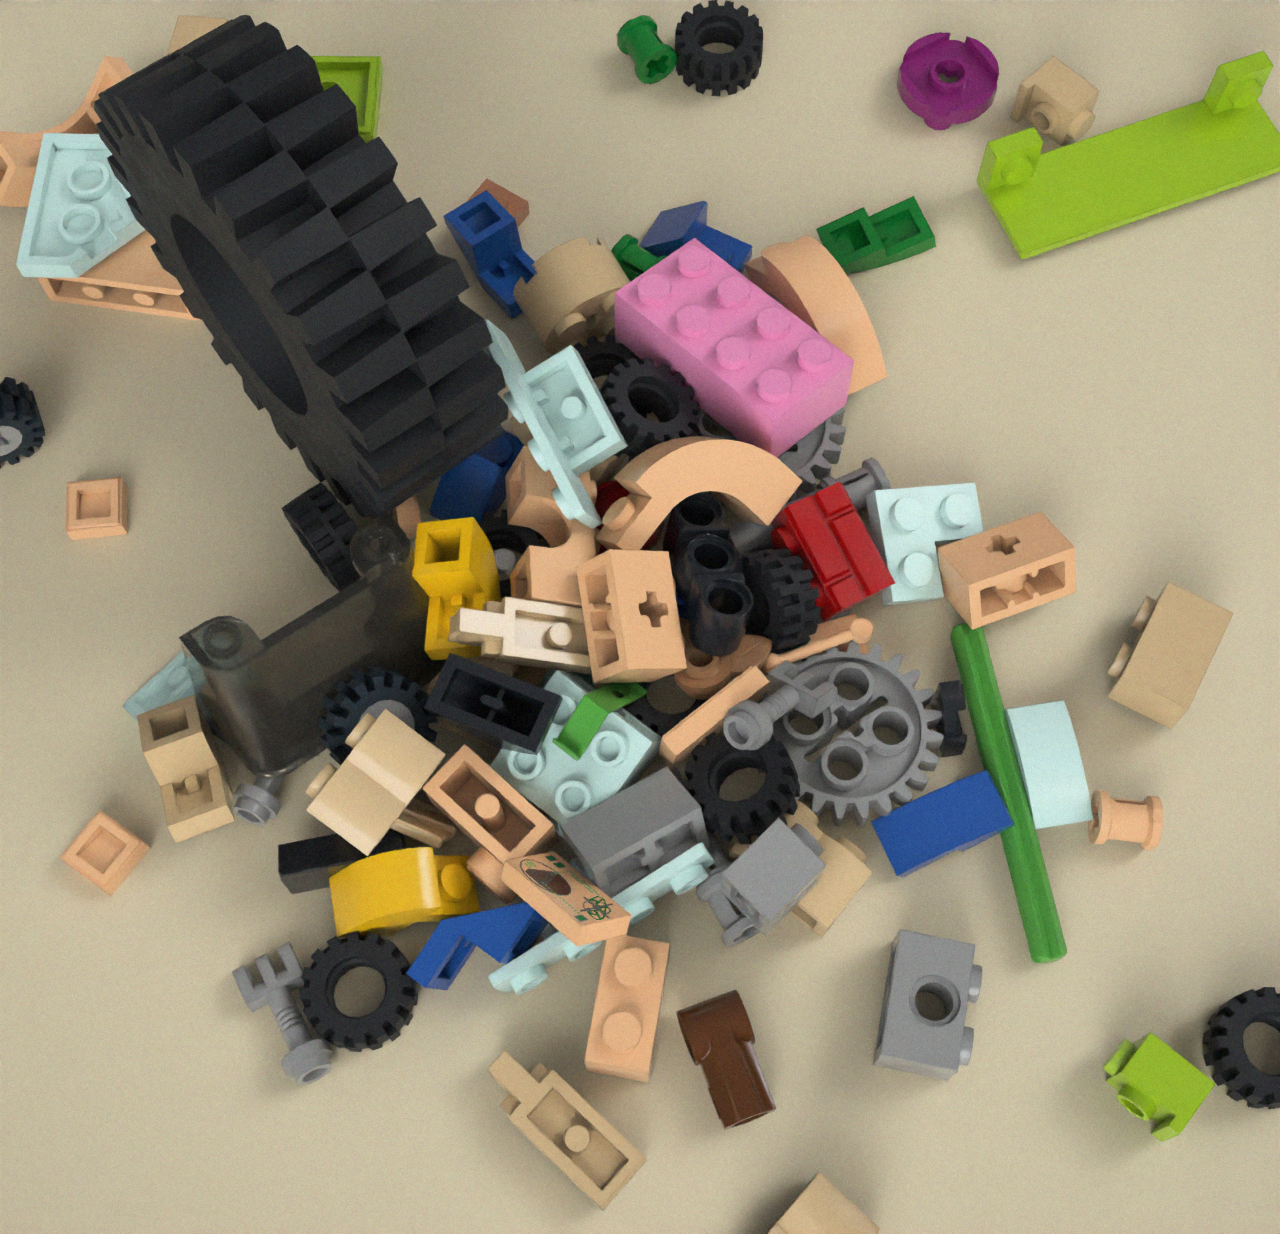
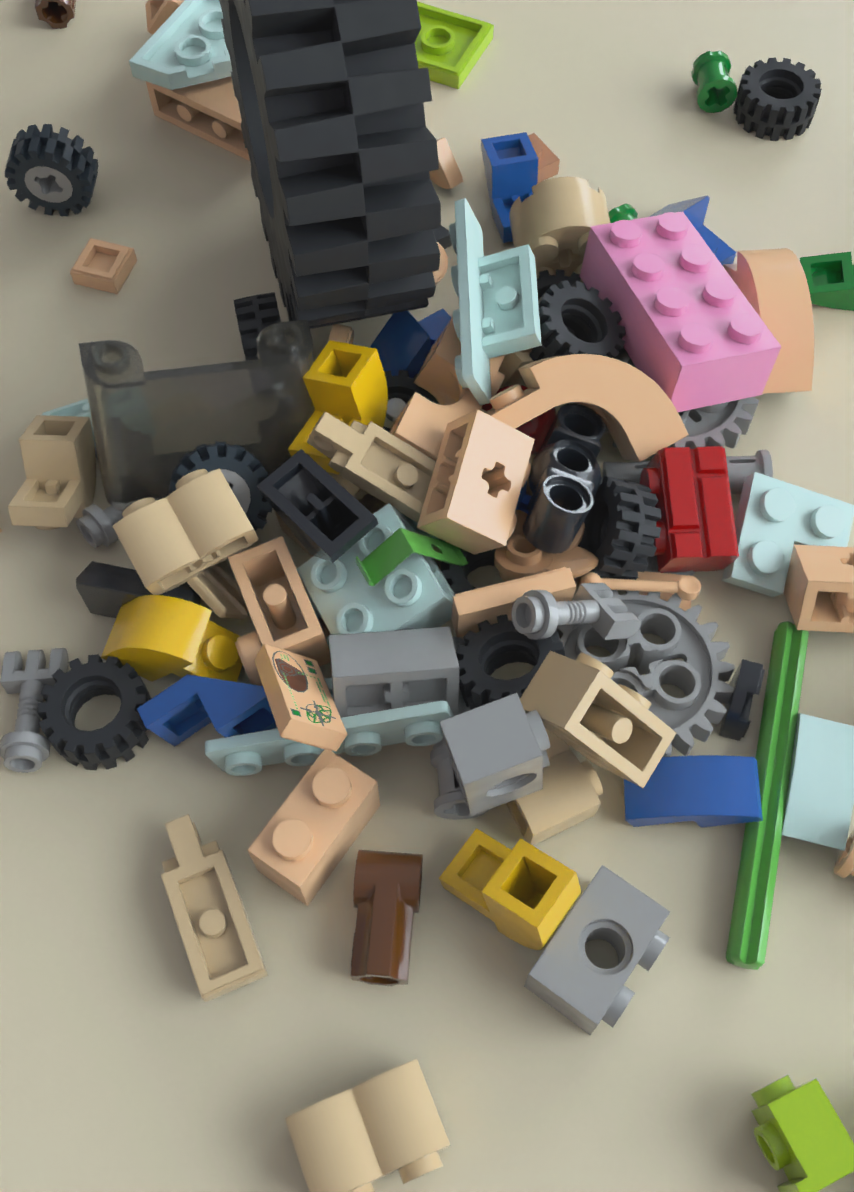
camera: 25 degrees right, 5 degrees down
(841, 985) = (514, 888): none -> yellow brick
(845, 800) = (598, 716): none -> tan brick

